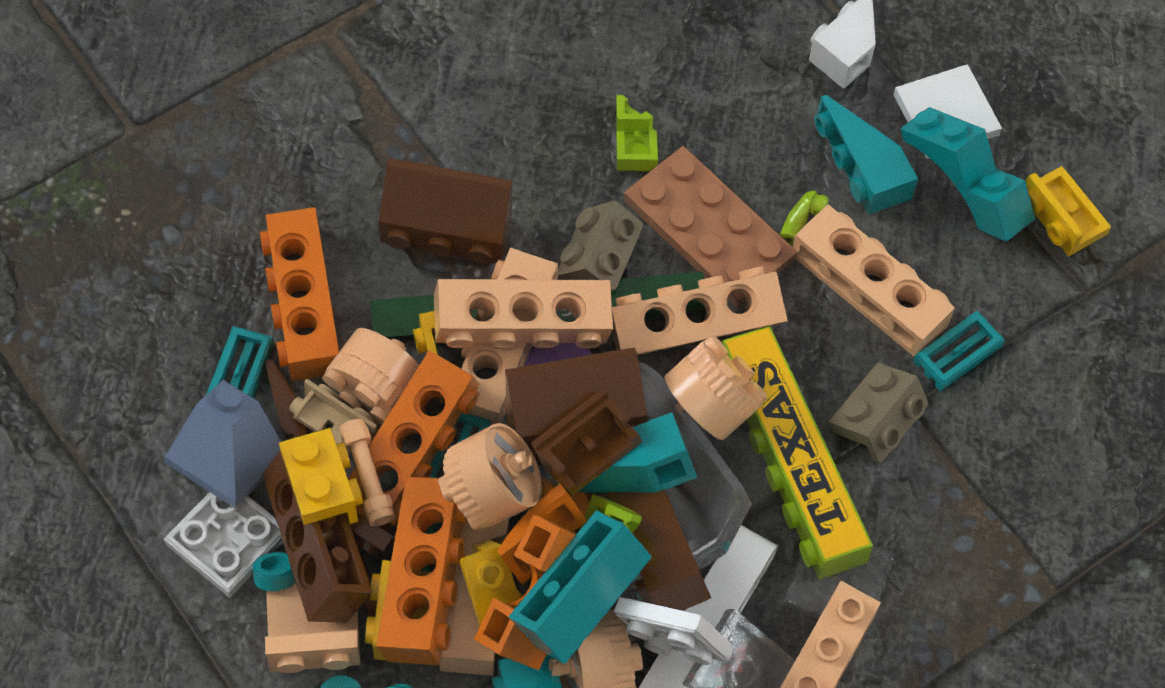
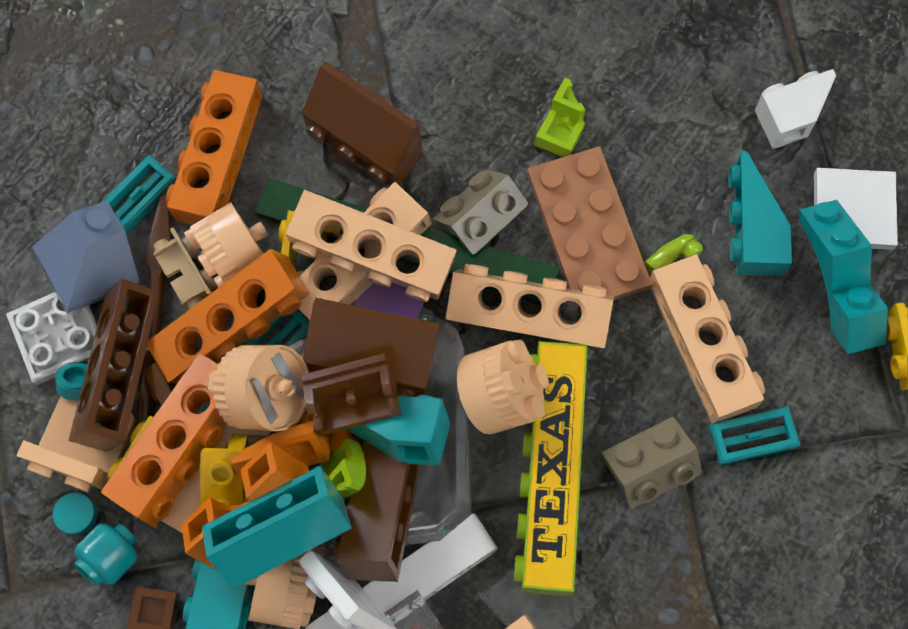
camera: 35 degrees right, 10 degrees up
(319, 477) = (130, 323): yellow bracket -> none
(378, 505) = (179, 299): light nougat bar -> none

